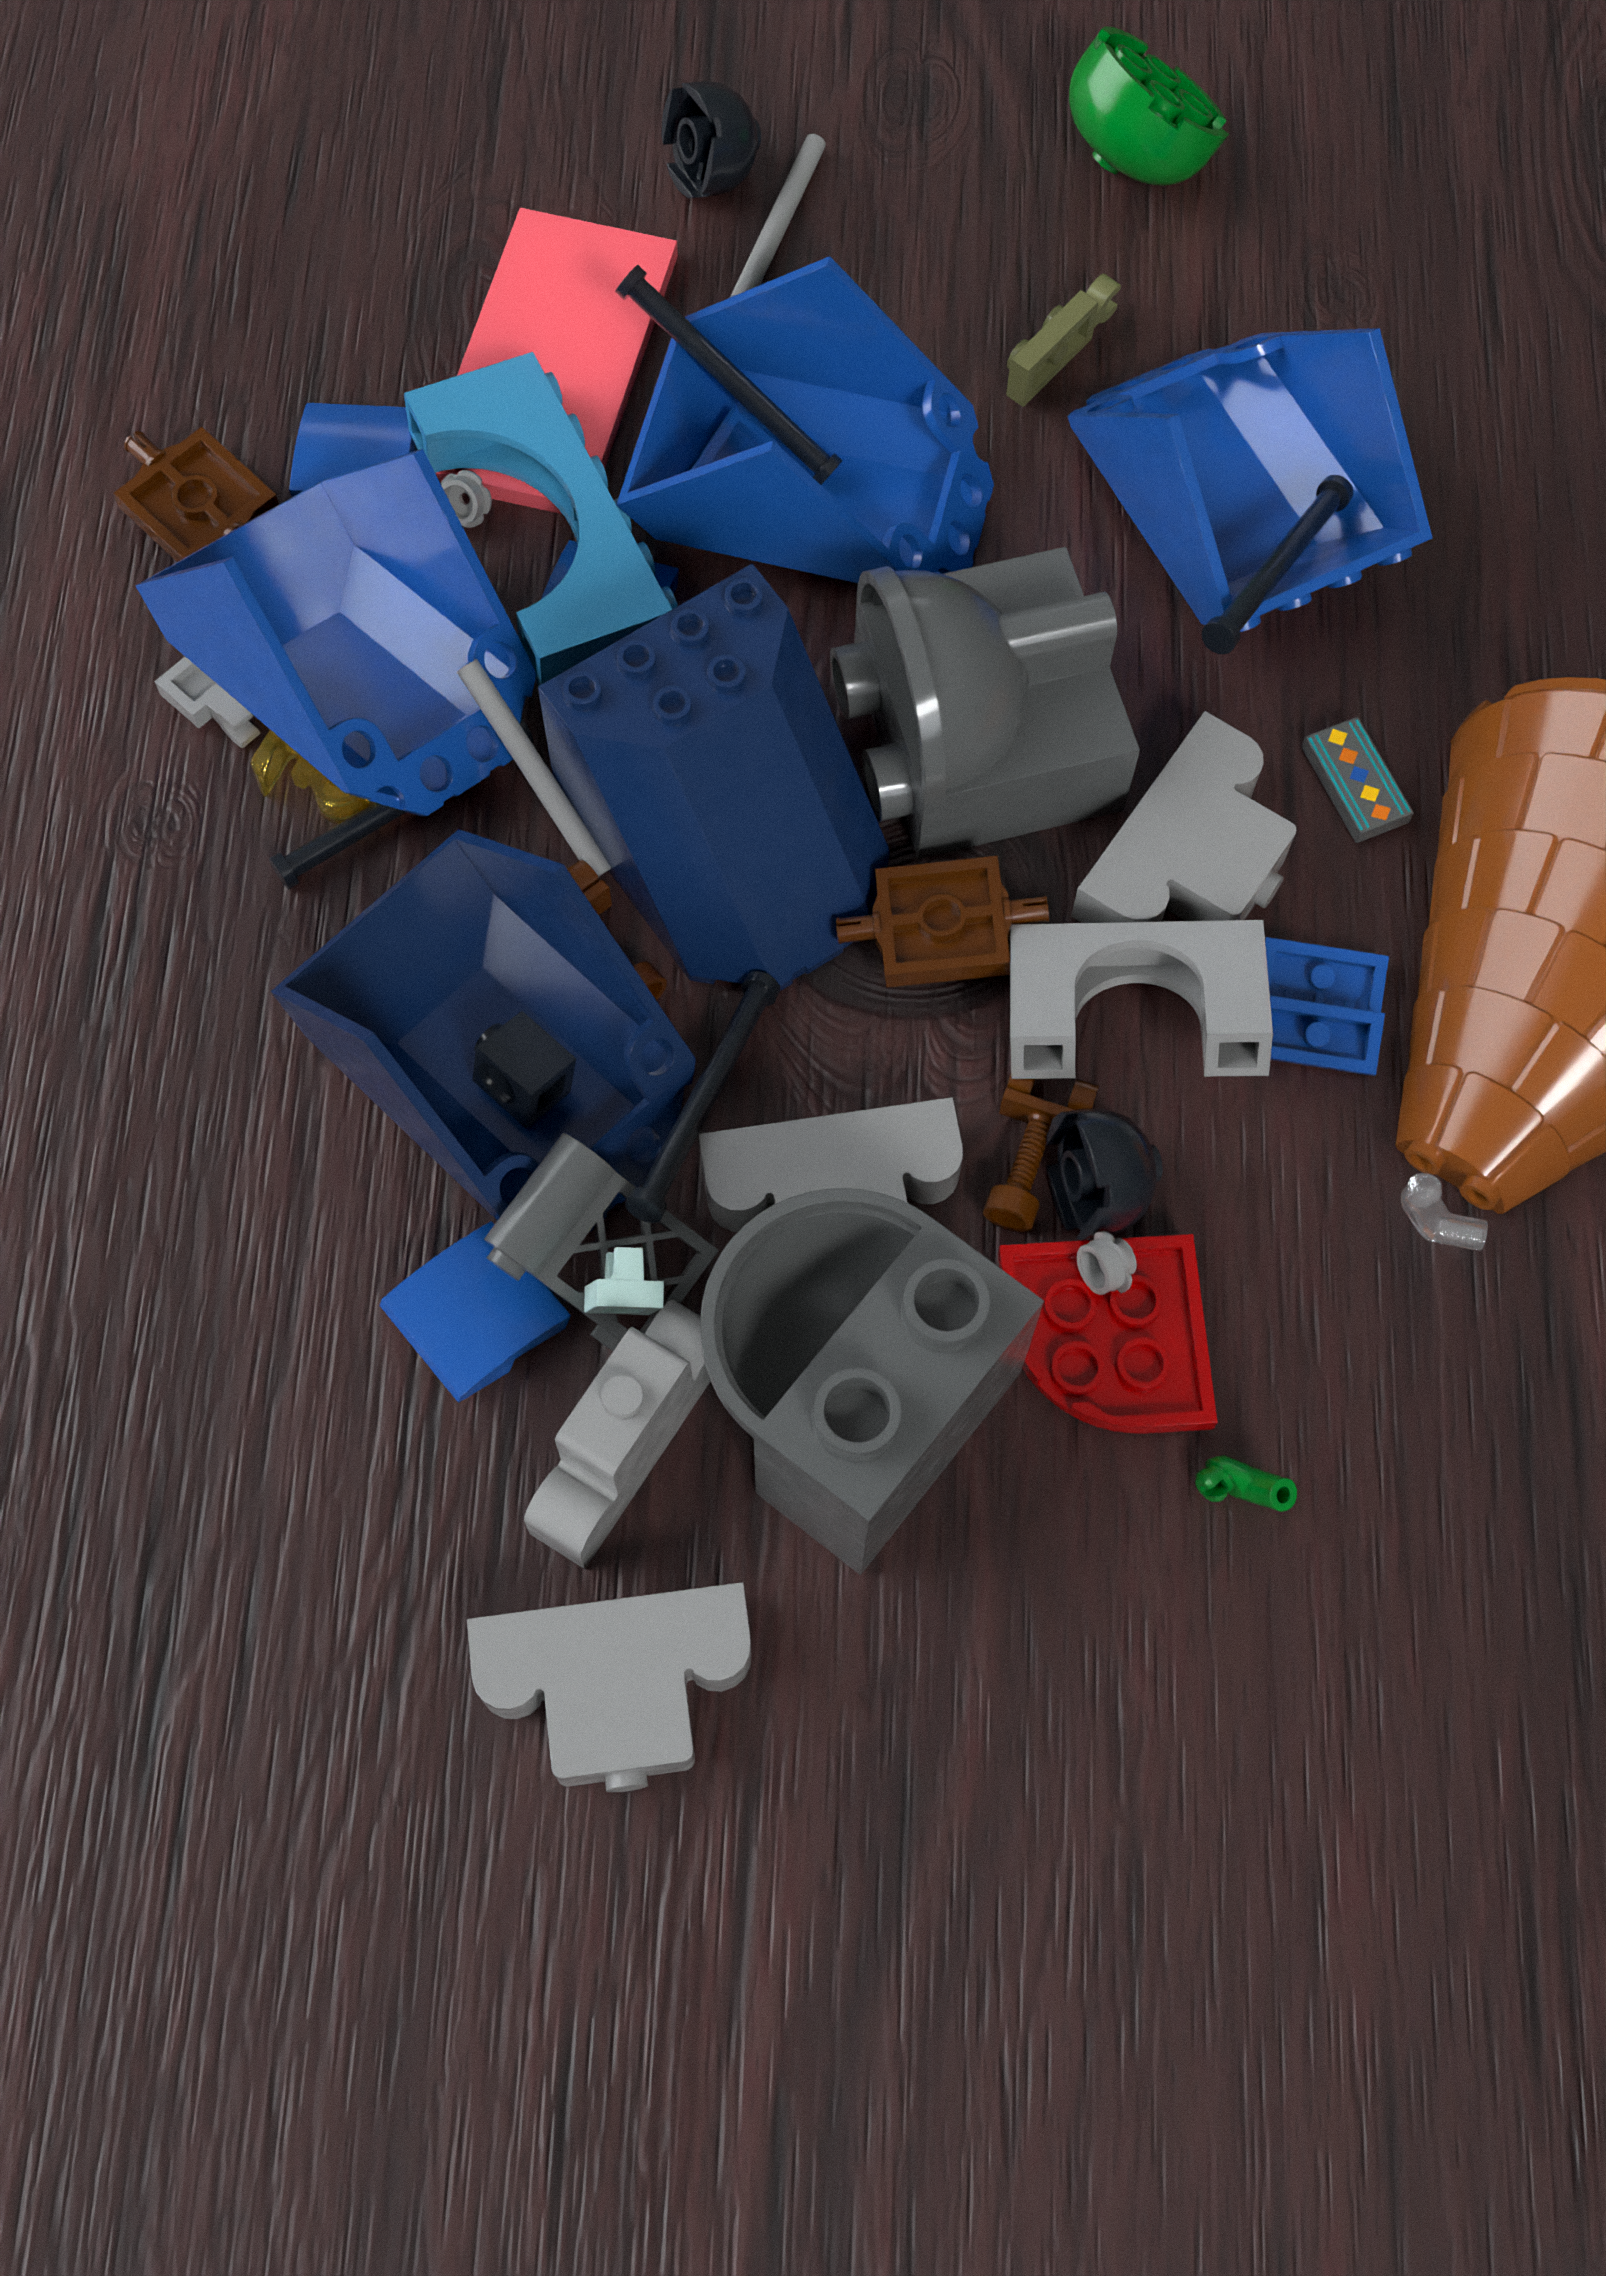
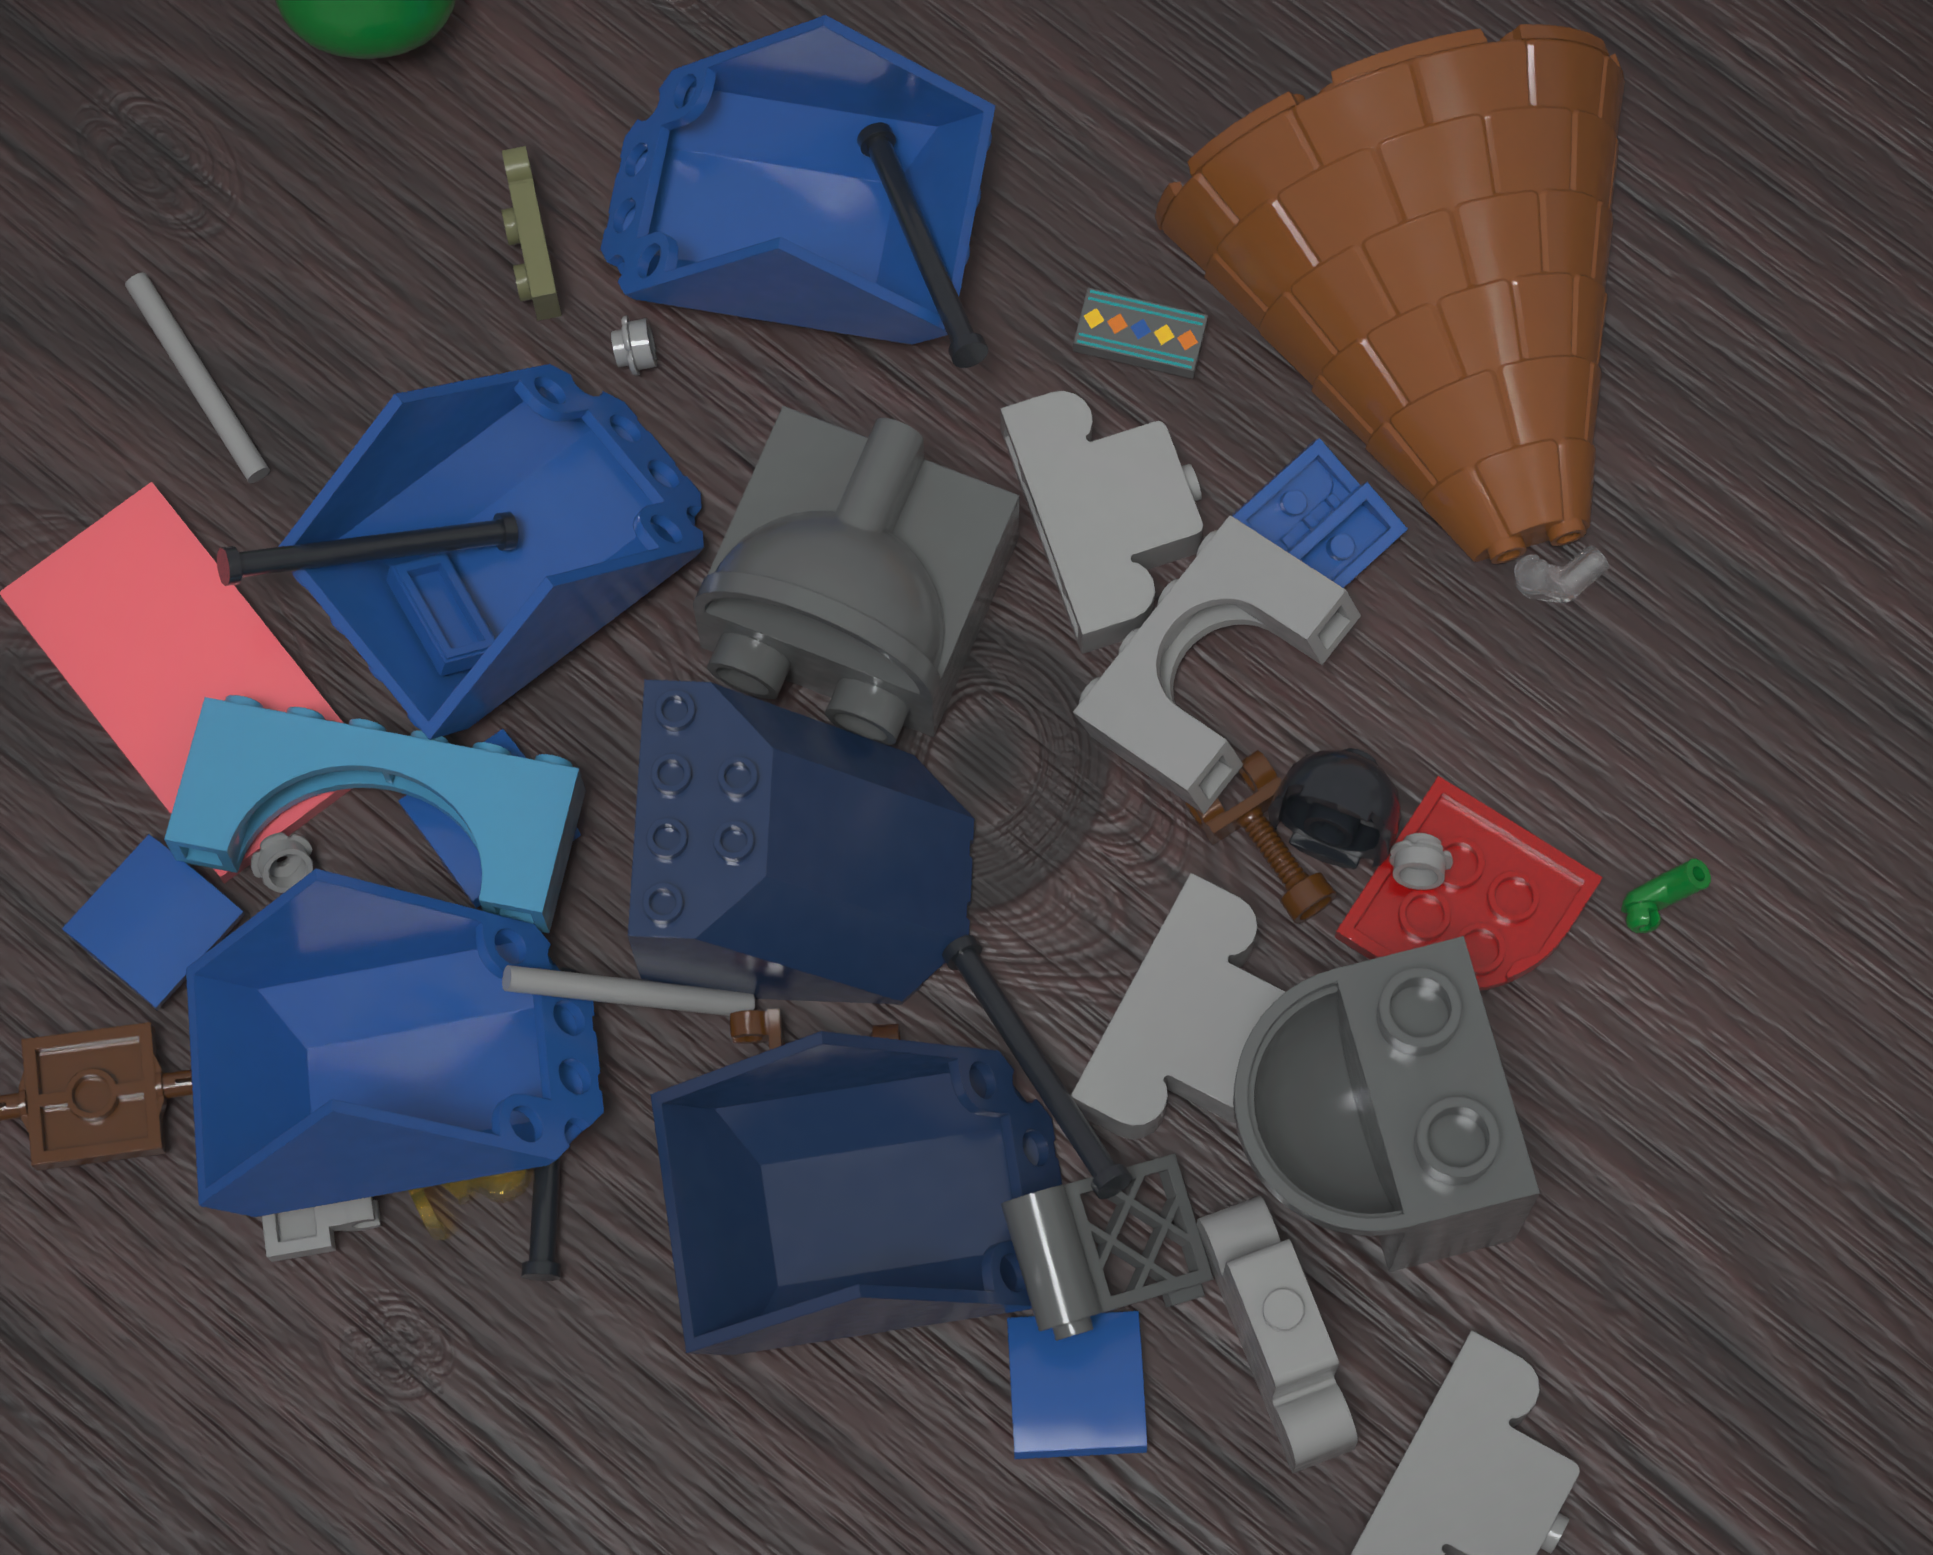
camera: 50 degrees left, 5 degrees up
(523, 1068) = (896, 1196): black brick -> none
(624, 1286) = (1163, 1248): light aqua tile -> none
(710, 138) = (74, 376): black cylinder -> none
(942, 921) = (1023, 762): reddish brown plate -> none
(1040, 458) = (634, 345): none -> light grey plate

